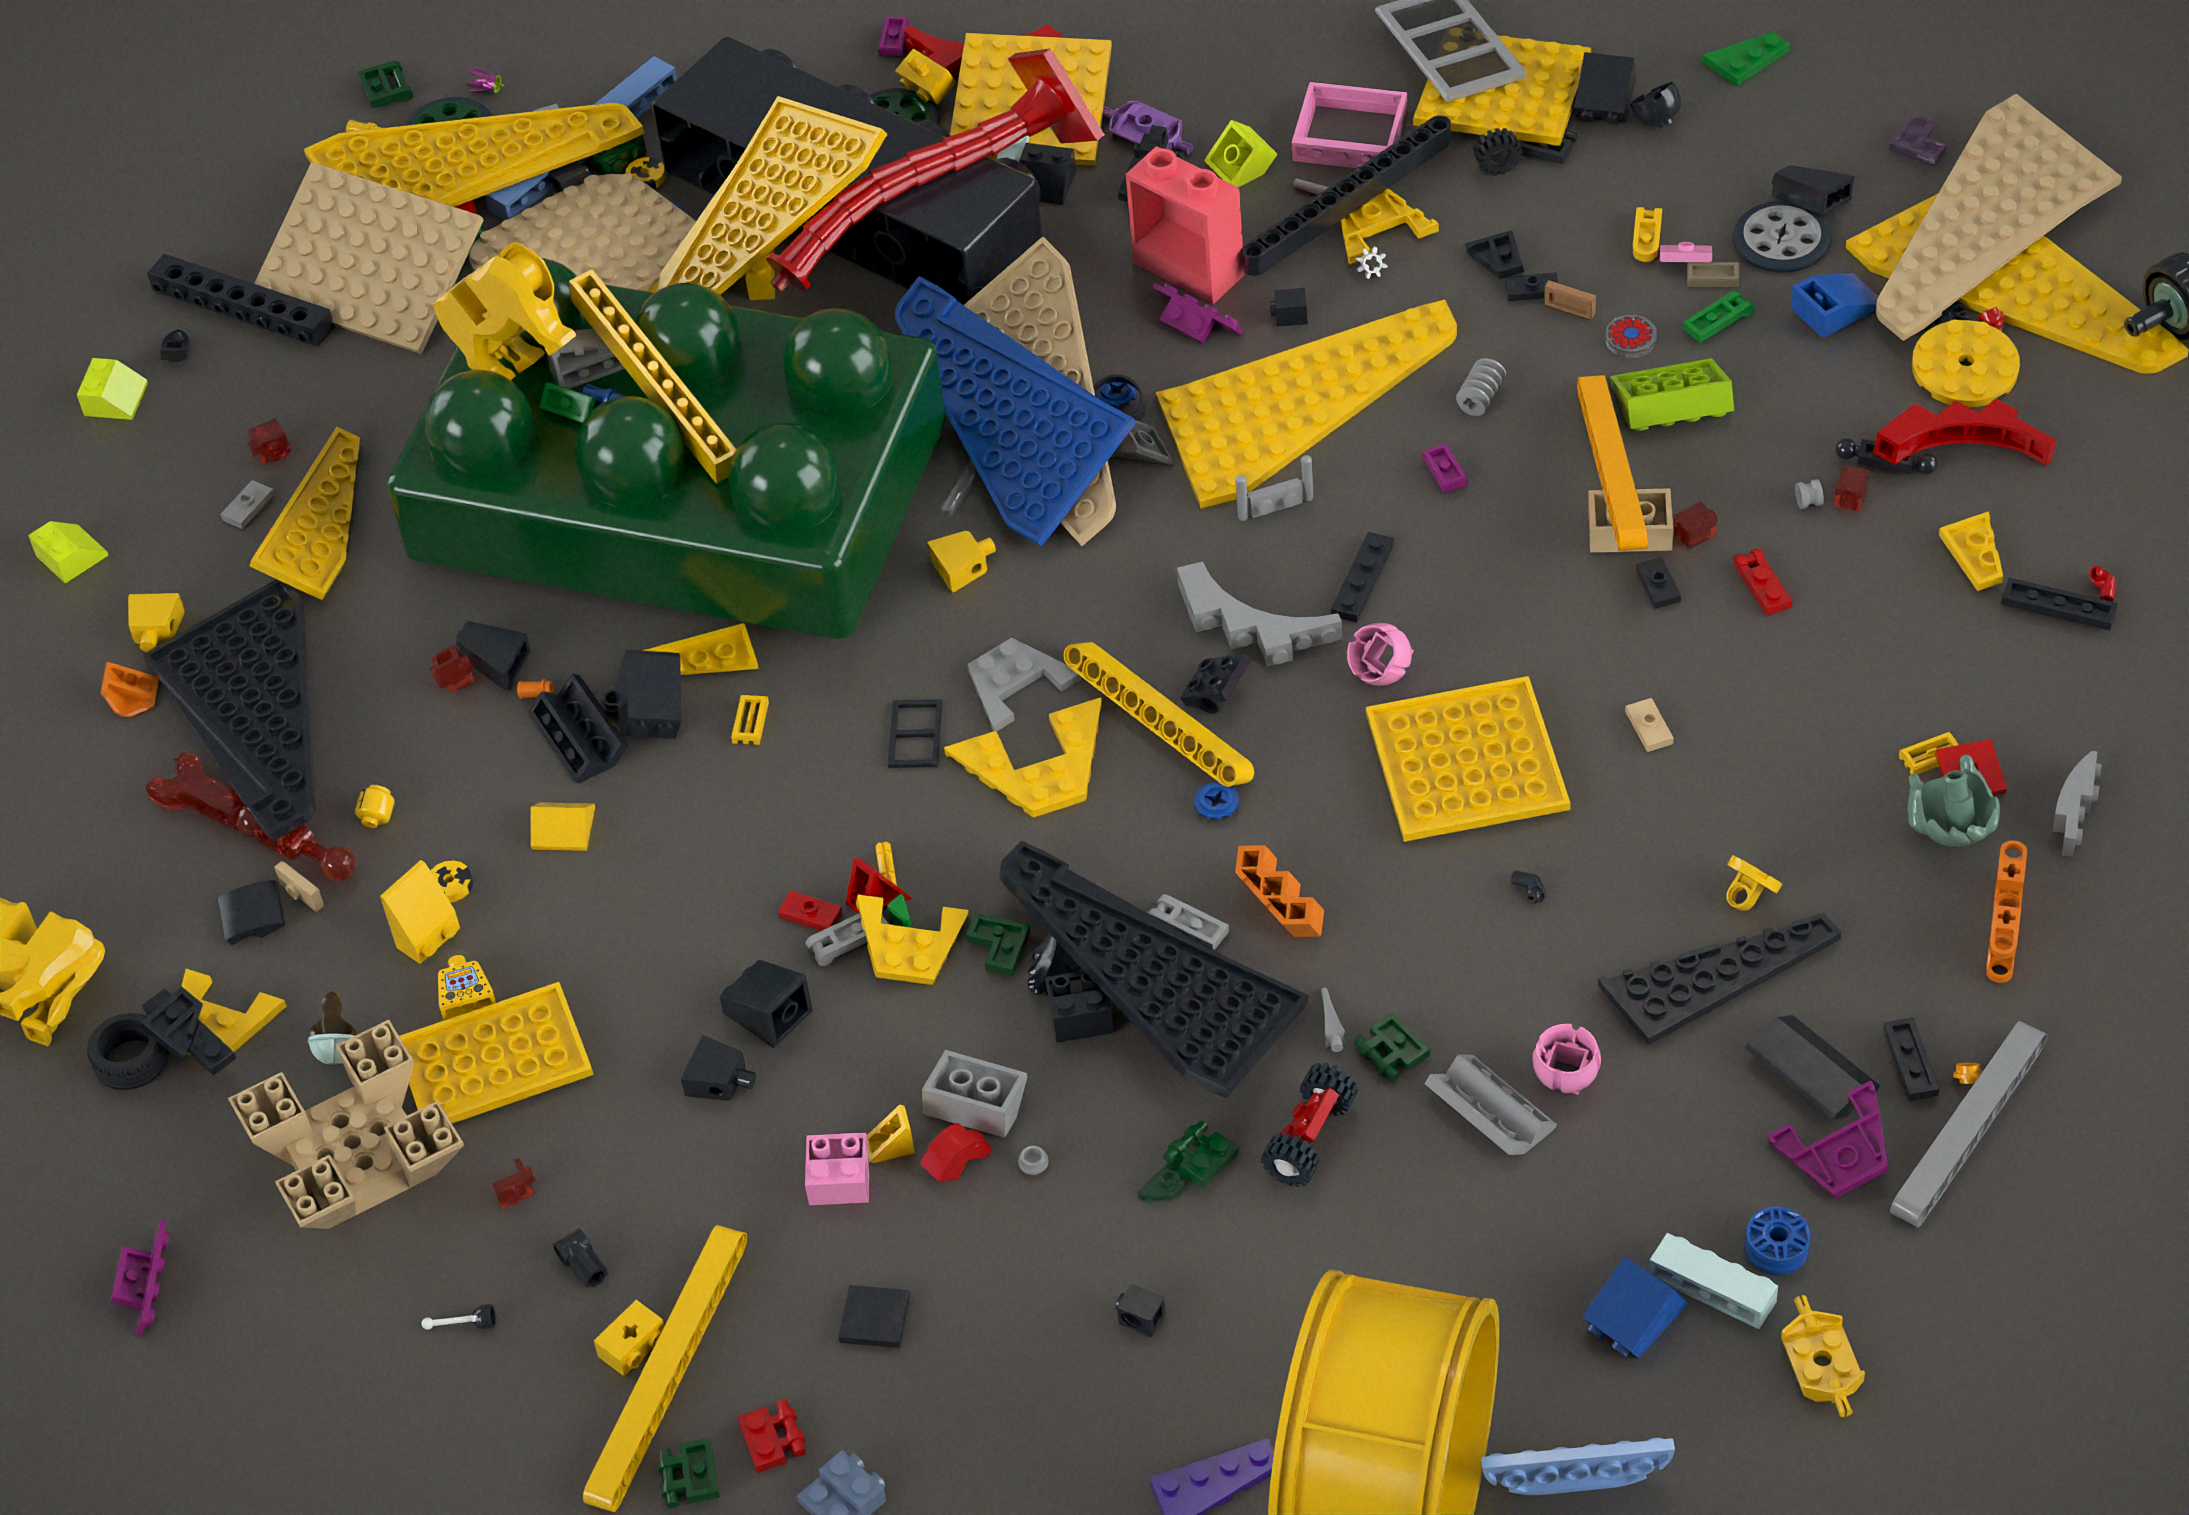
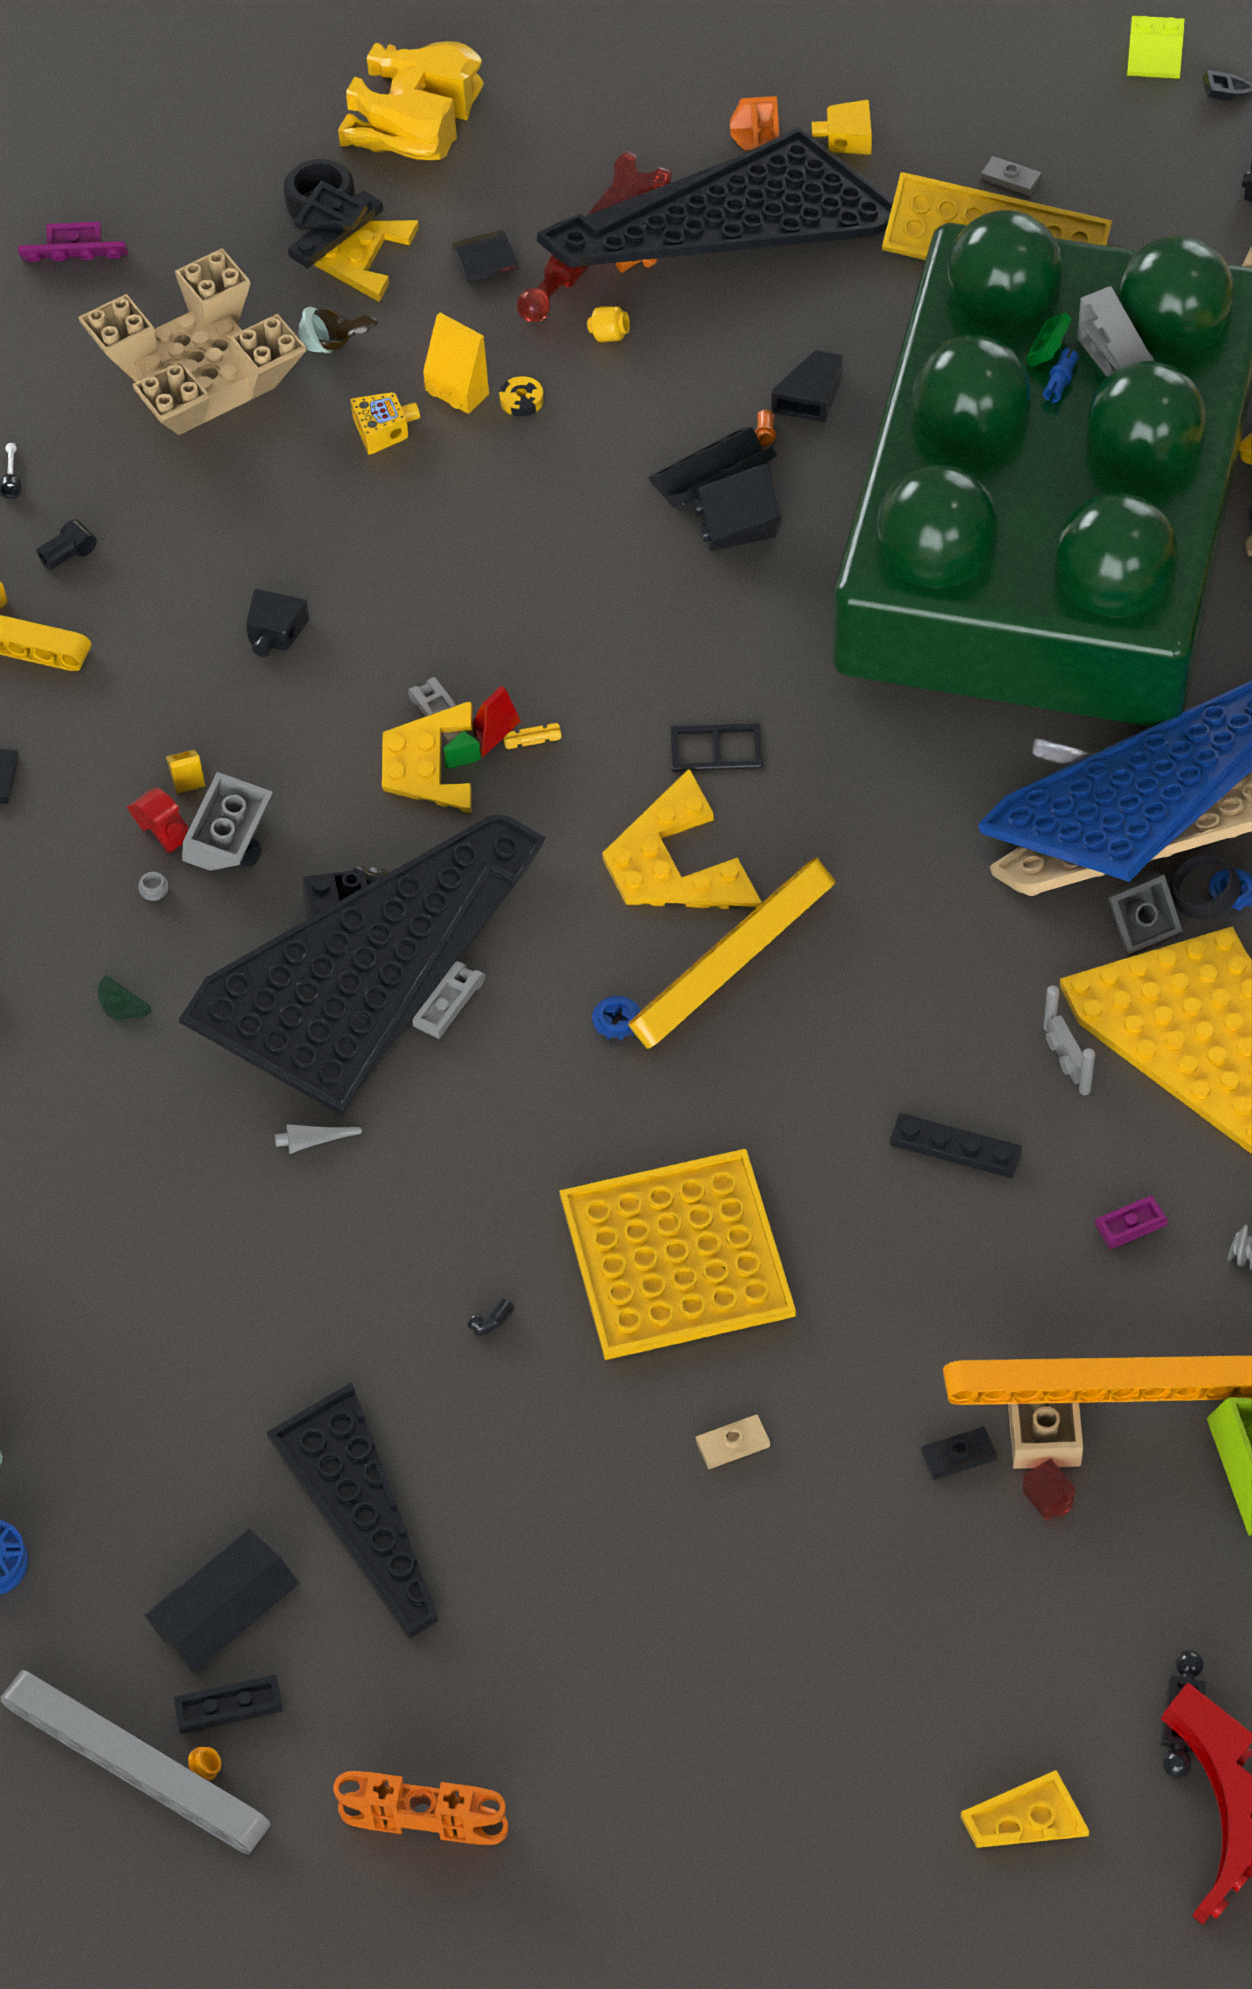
camera: 85 degrees right, 5 degrees up
(66, 549) = (938, 51): neon yellow slope -> none
(268, 441) = (1093, 175): clear red brick -> none
(298, 886) = (511, 283): tan plate -> none
(452, 669) = (780, 354): clear red brick -> none
(497, 305) = (1106, 238): yellow animal -> none
(497, 1054) = (304, 454): yellow plate -> none
(515, 1187) = (153, 492): clear red bracket -> none
(561, 826) = (592, 469): yellow slope -> none
(652, 373) = (1068, 384): yellow brick -> none
(714, 651) = (814, 553): yellow wing -> none
(747, 735) = (727, 606): yellow tile -> none
(768, 1001) = (351, 649): black slope -> none
(809, 911) = (475, 679): red plate -> none
(837, 1169) = (145, 724): bright pink slope -> none
(960, 558) = (957, 760): yellow torso -> none
(1004, 937) = (412, 841): dark green plate -> none
(1010, 669) = (798, 815): light grey wing -> none
(1208, 1158) = (141, 1032): dark green plate -> none
(1214, 682) = (780, 1002): black plate -> none
(1243, 625) = (891, 997): light grey arch -> none
(1279, 891) = (475, 1072): orange brick -> none
(1288, 1151) = (126, 1095): black plate -> none
(1369, 646) = (813, 1154): bright pink piece -> none
(1398, 1041) = (277, 1198): dark green plate -> none
(1491, 1105) = (191, 1284): light grey slope -> none
(1569, 1047) = (236, 1329): bright pink piece -> none
(1751, 880) = (484, 1537): yellow tile -> none
(1762, 582) = (965, 1568): red plate -> none
(1809, 494) = (1109, 1620): light grey wheel -> none
(1846, 1156) = (92, 1628): magenta wing -> none
(1851, 488) = (1120, 1669): clear red brick -> none
(1927, 760) = (702, 1773): yellow tile -> none
(1953, 807) = (576, 1757): sand green piece -> none
(1984, 761) = (655, 1789): red plate -> none
(2059, 603) = (936, 1912): black plate -> none
(2076, 800) = (618, 1909): light grey slope -> none
(2104, 581) = (980, 1973): red arm -> none

